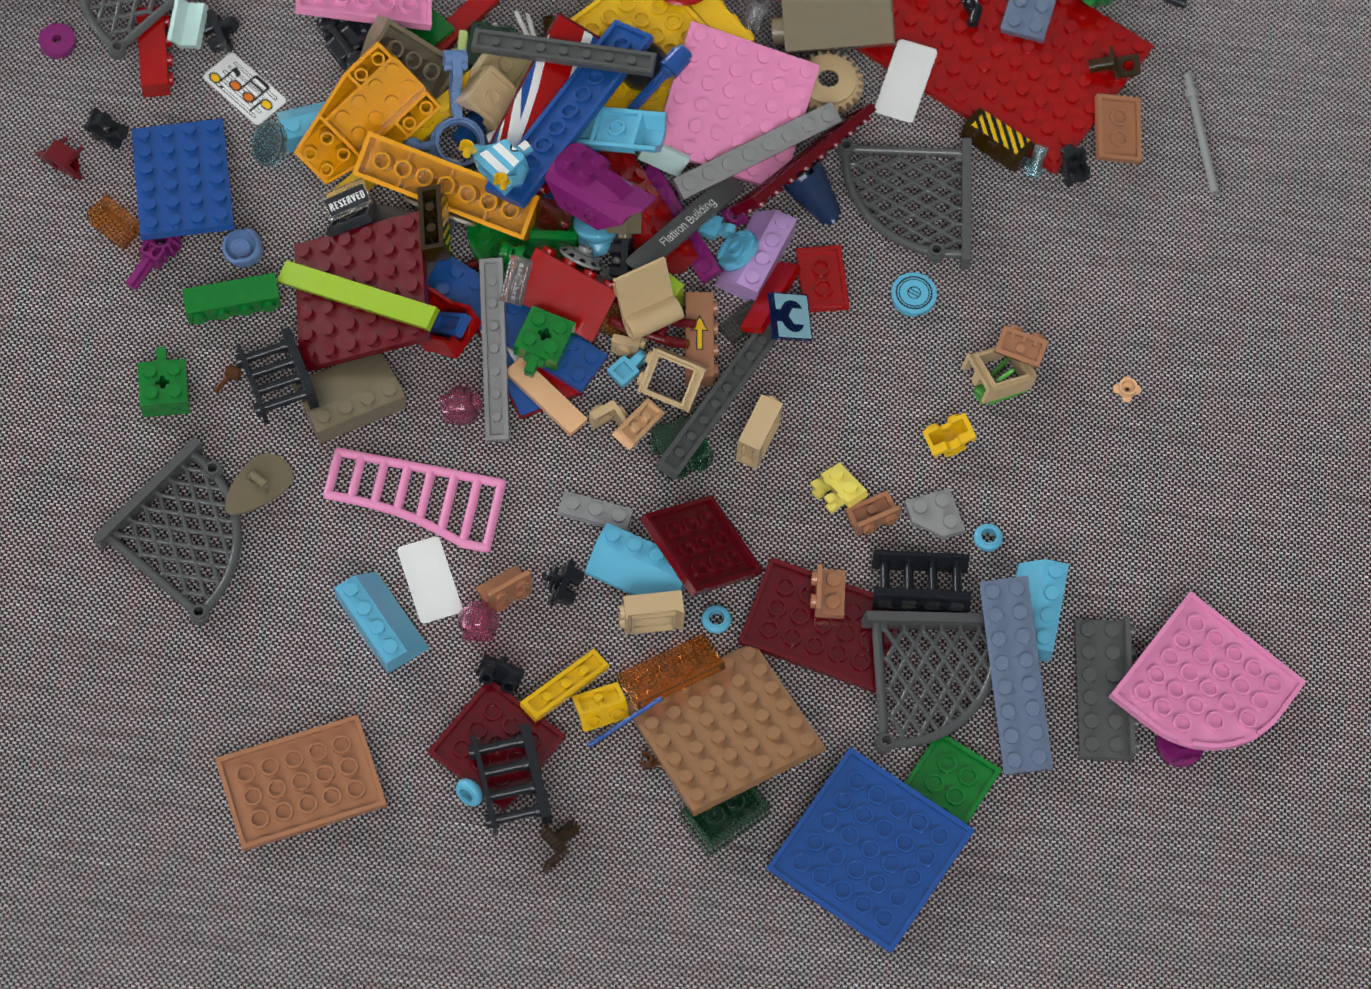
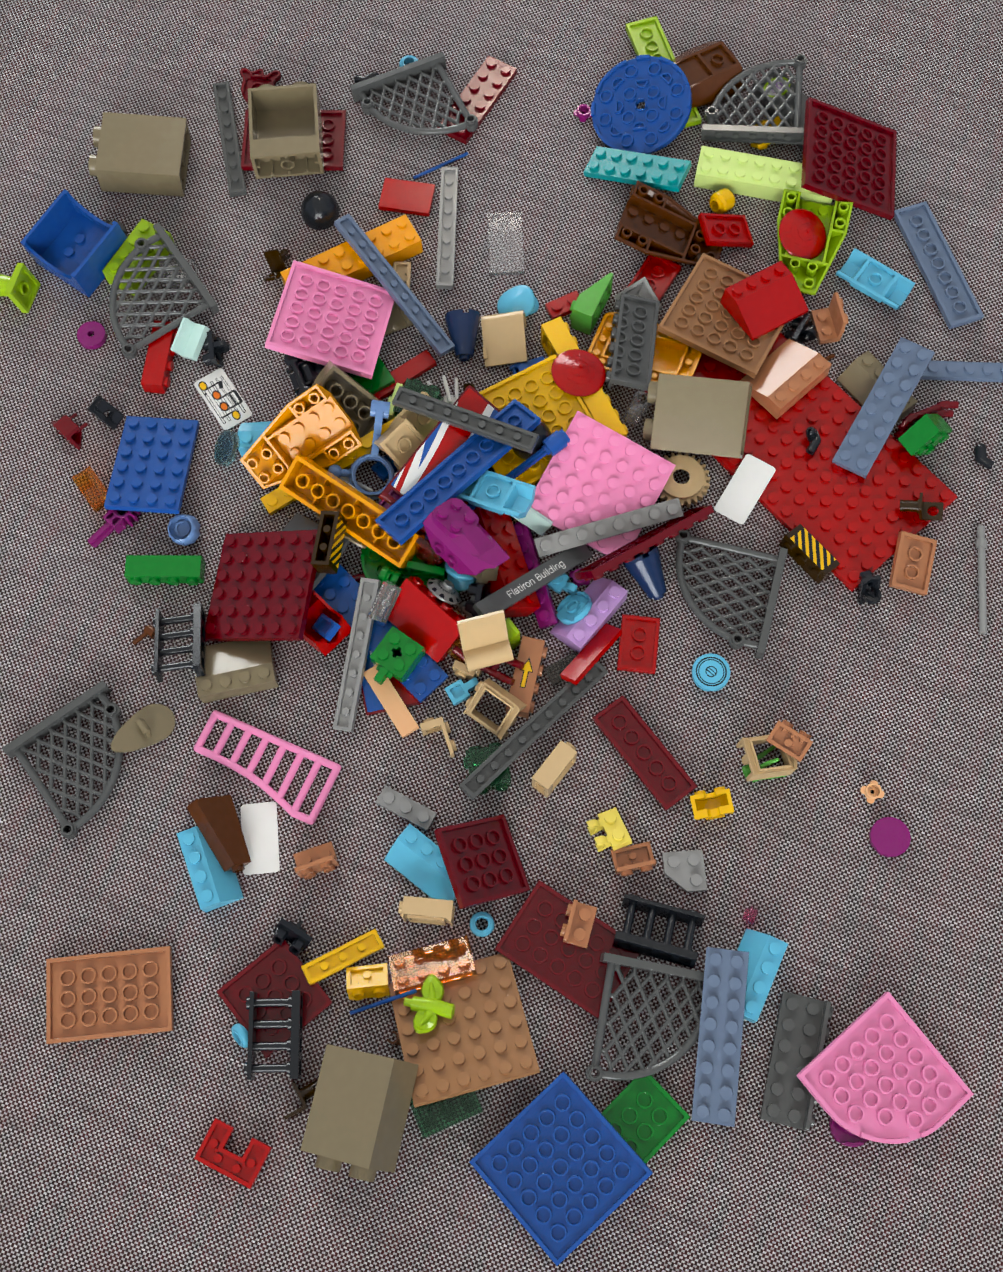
camera: 20 degrees right, 5 degrees up
(163, 386) = (92, 631): green hinge -> none
(346, 199) = (271, 506): panel -> none
(352, 220) = (273, 522): black plate -> none
(358, 295) = (257, 590): lime tile -> none
(386, 575) = (222, 831): none -> reddish brown slope
(460, 406) = (318, 696): clear pink piece -> none
(478, 622) = (285, 887): clear pink piece -> none
(500, 162) = (389, 503): torso -> none
(507, 933) = (238, 1168): none -> red plate
(567, 574) = (369, 859): black hips -> none
(631, 830) = (359, 1112): none -> dark tan brick
(638, 424) = (456, 742): light nougat tile -> none
(681, 708) = (429, 1005): none -> lime plant
(790, 316) = (602, 674): tile -> none
(857, 396) = (644, 753): none -> dark red plate
(988, 546) = (728, 891): medium azure piece -> none
(1019, 547) = (750, 915): none -> clear pink plate
(1034, 167) = (836, 581): clear light blue animal -> none
(1157, 434) = (889, 837): none -> magenta tile

